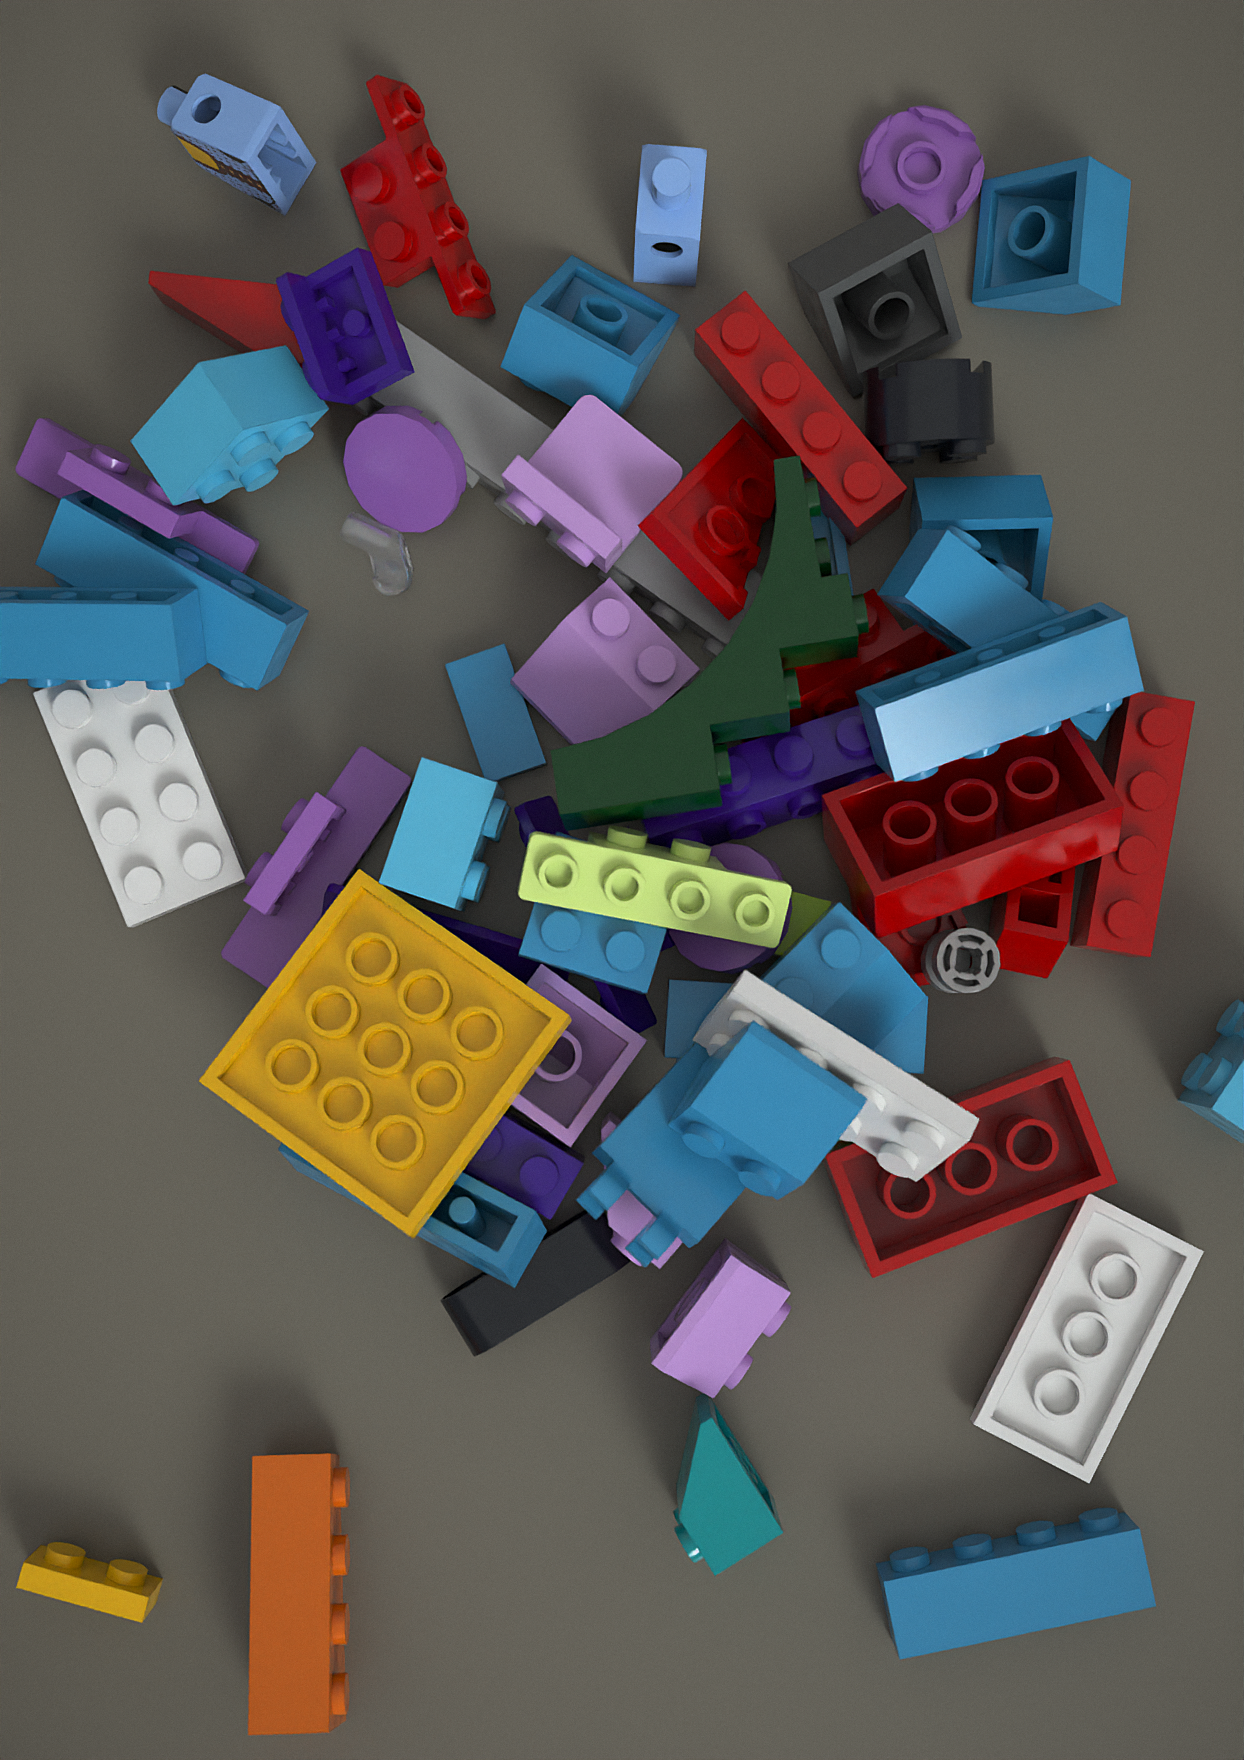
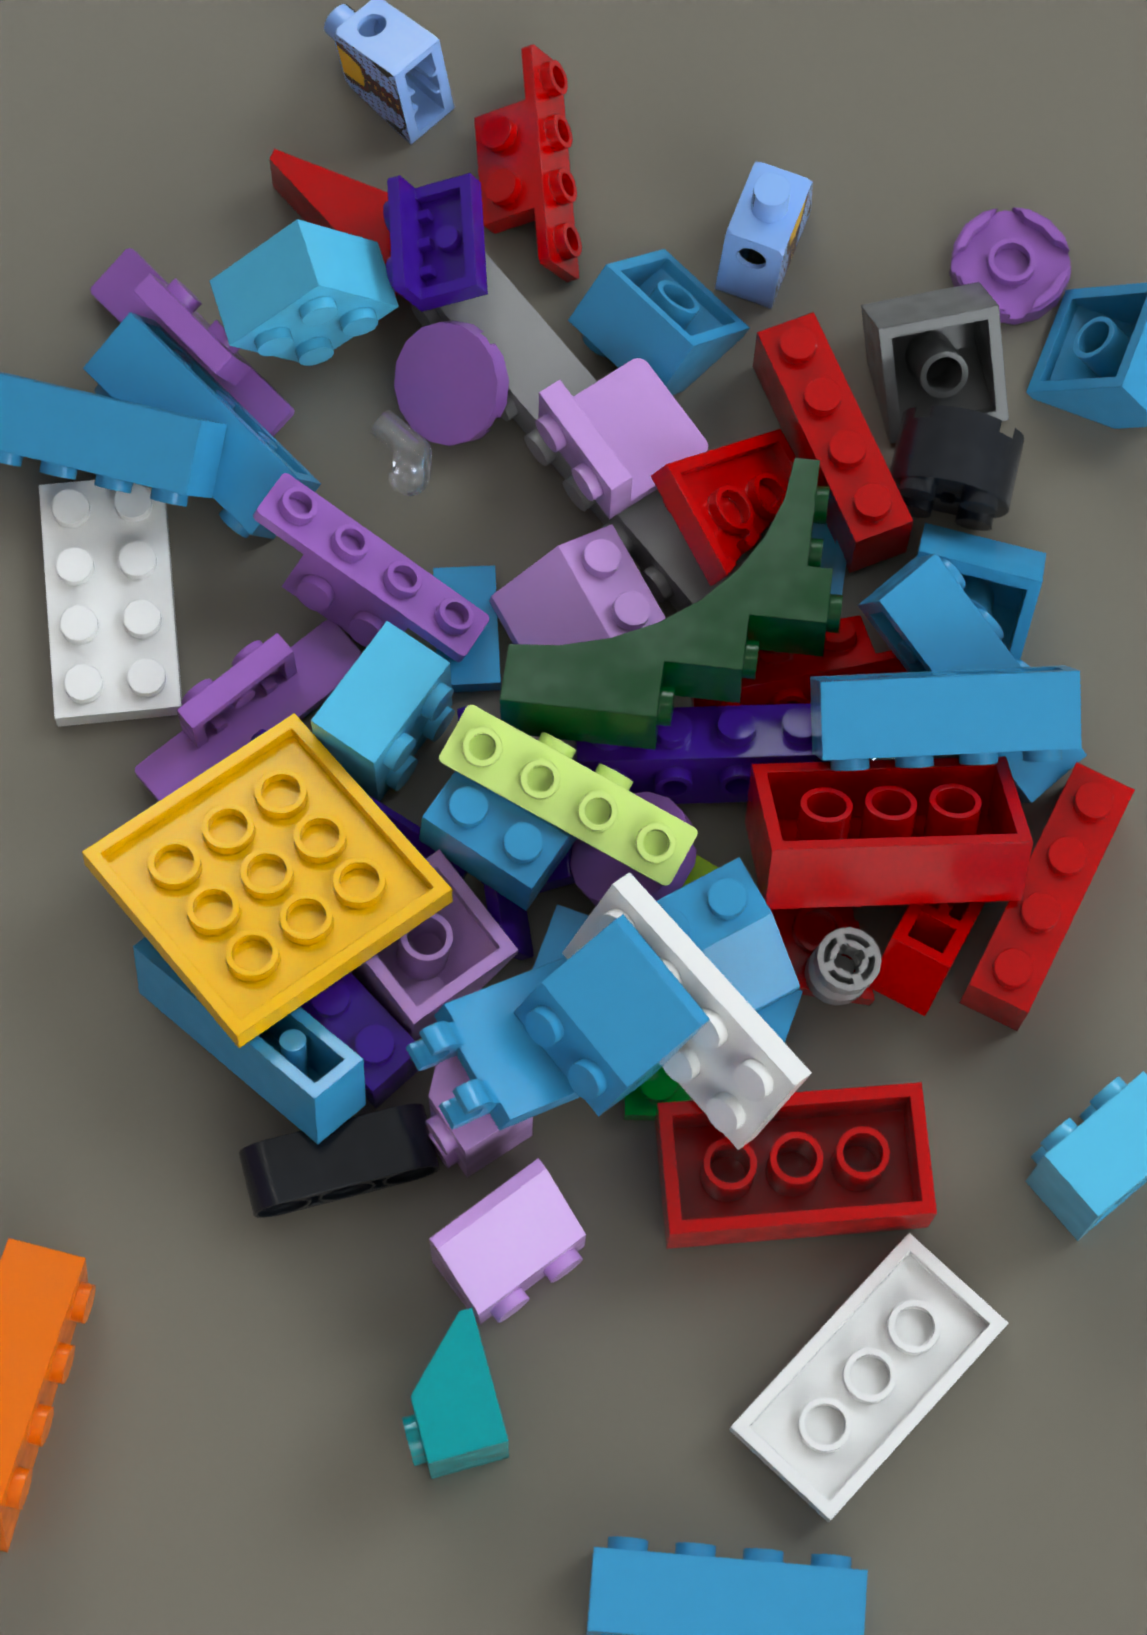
camera: 10 degrees right, 15 degrees down
(382, 703) = (361, 578): none -> medium lavender bracket

